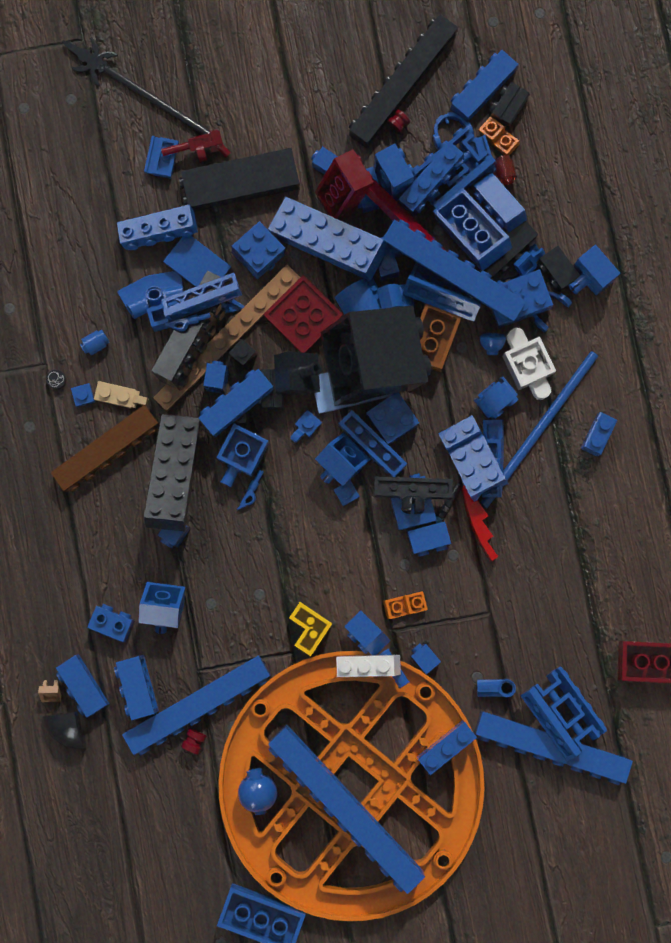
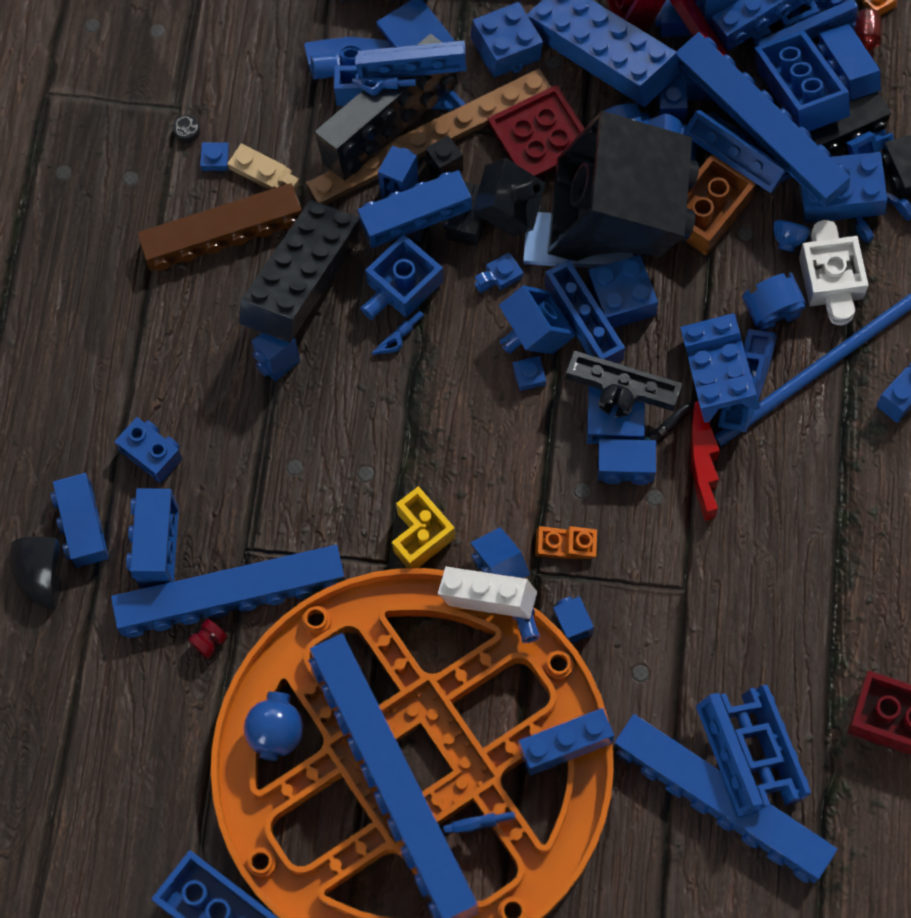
camera: 20 degrees right, 15 degrees down
(49, 693) = (32, 517): medium nougat tile -> none
(94, 342) = (252, 95): blue brick -> none
(161, 605) = (225, 441): blue brick -> none
(405, 813) = (476, 823): none -> blue hand
(492, 688) = (659, 690): blue piece -> none

